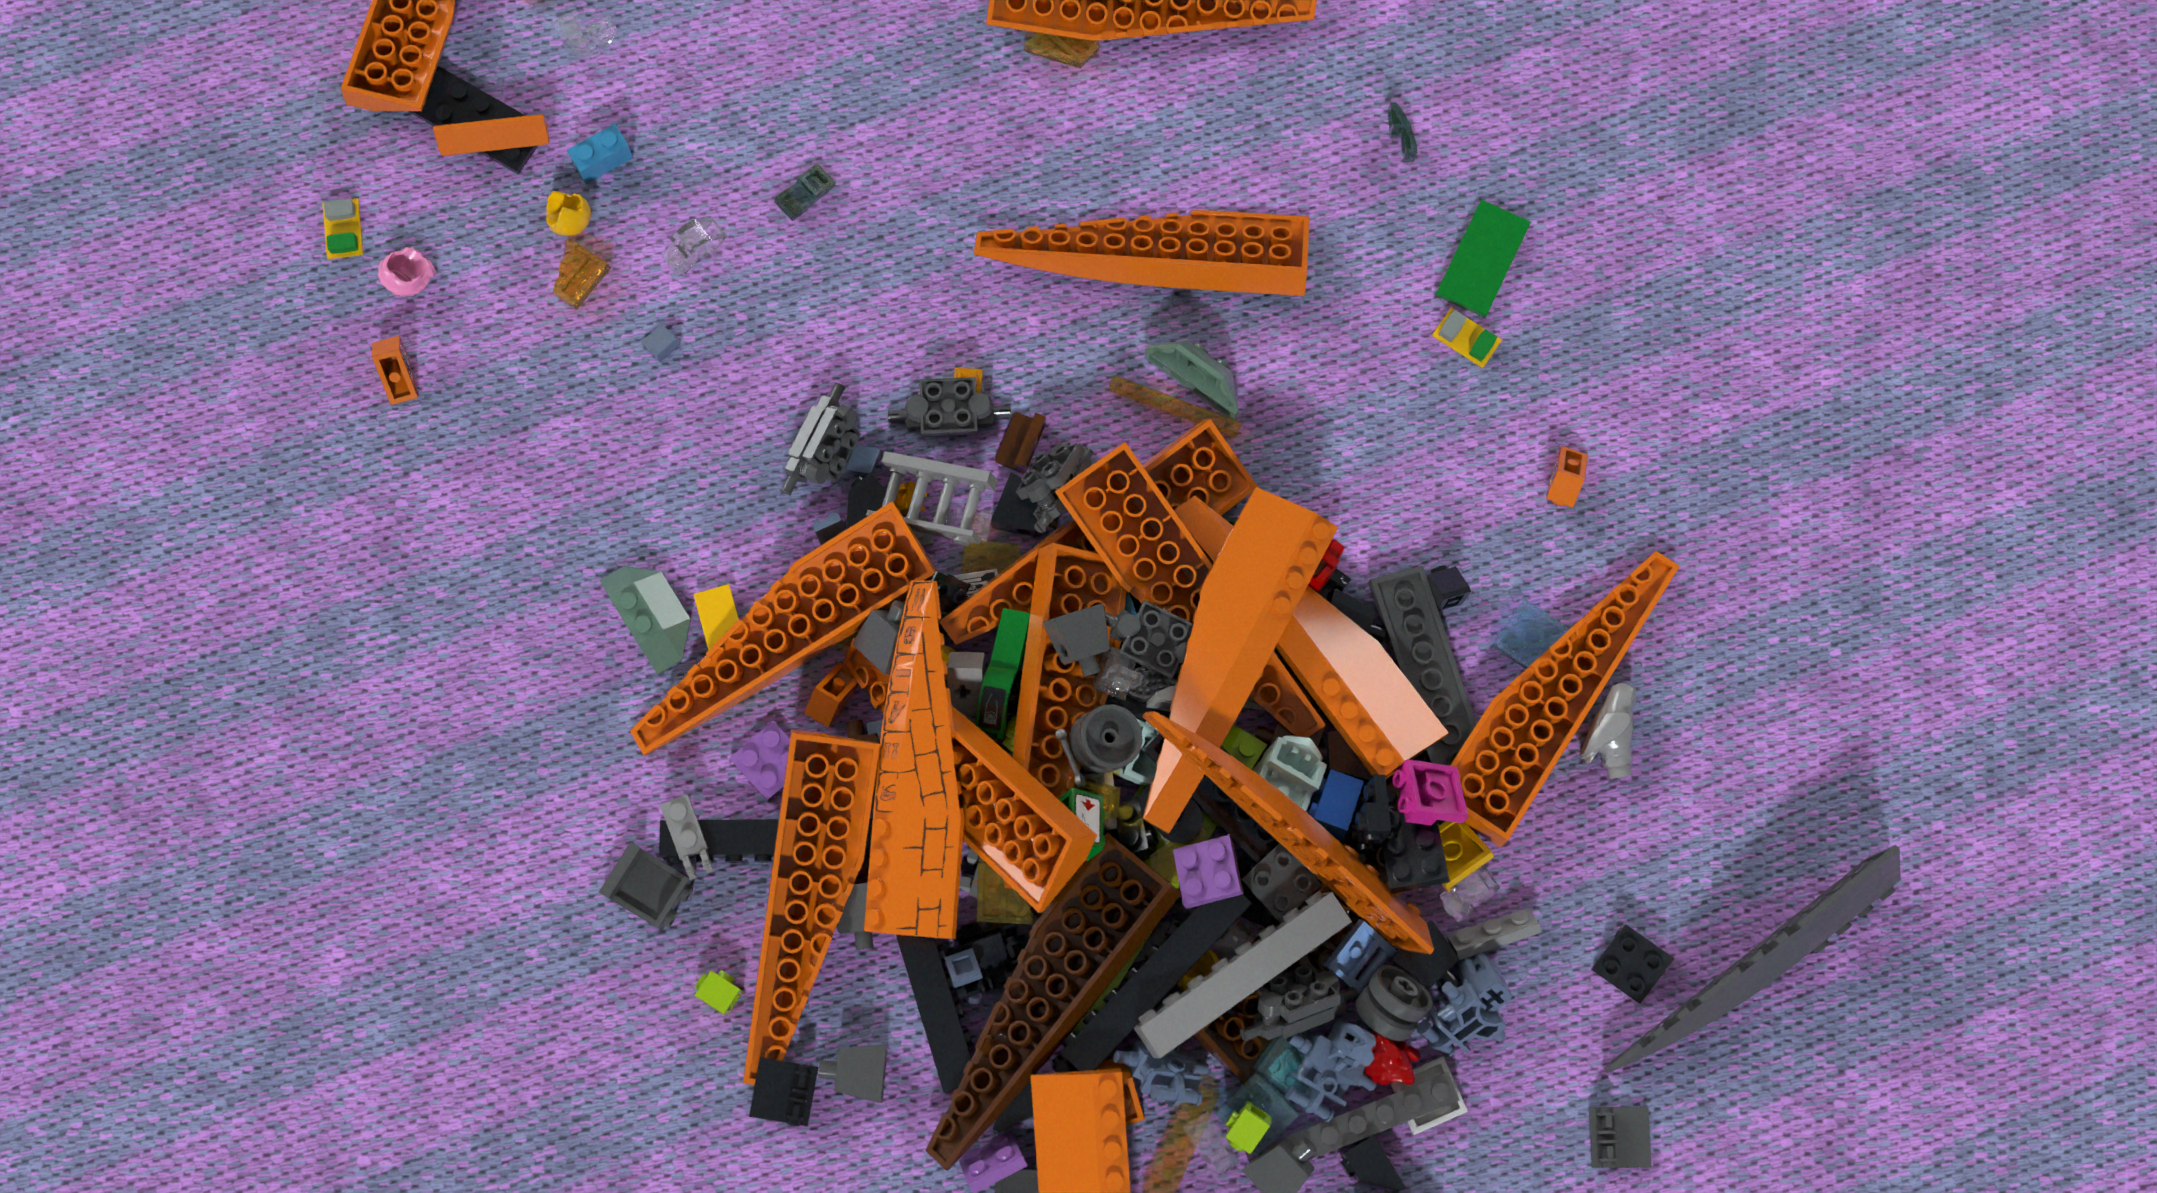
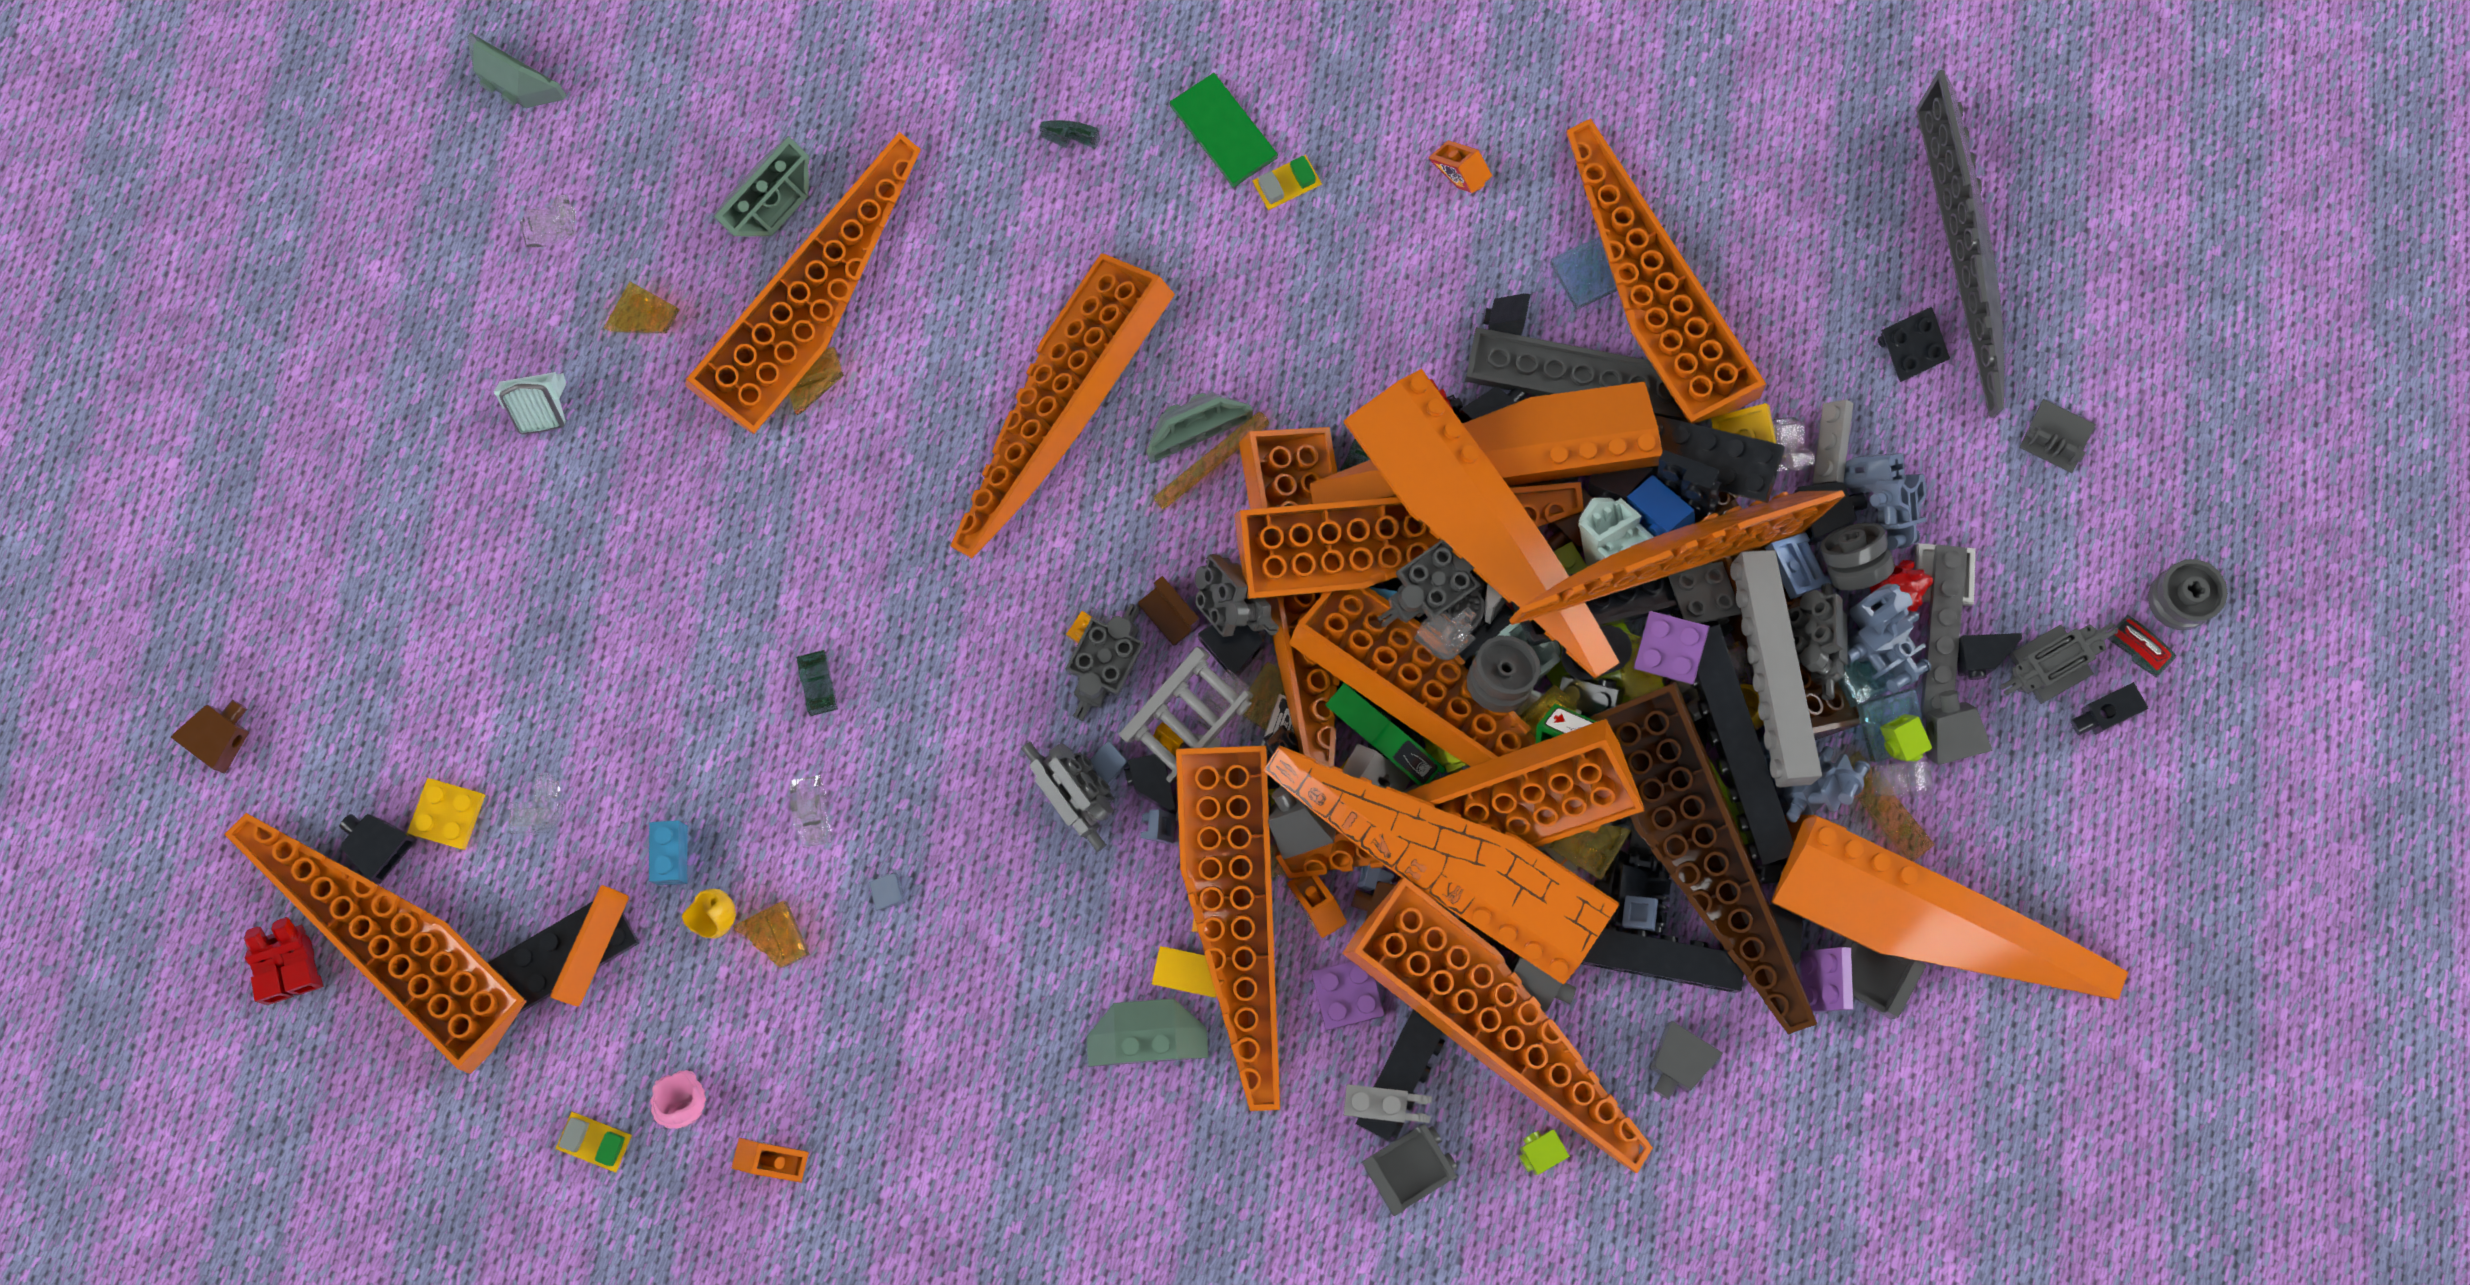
camera: 55 degrees left, 0 degrees up
(783, 1092) = (1665, 1138): black hinge -> none
(1061, 735) = (1478, 711): light grey hinge -> none
(1080, 637) = (1398, 646): dark grey torso -> none
(1429, 793) = (1696, 422): dark pink plate -> none
(1612, 732) = (1708, 251): light grey animal -> none

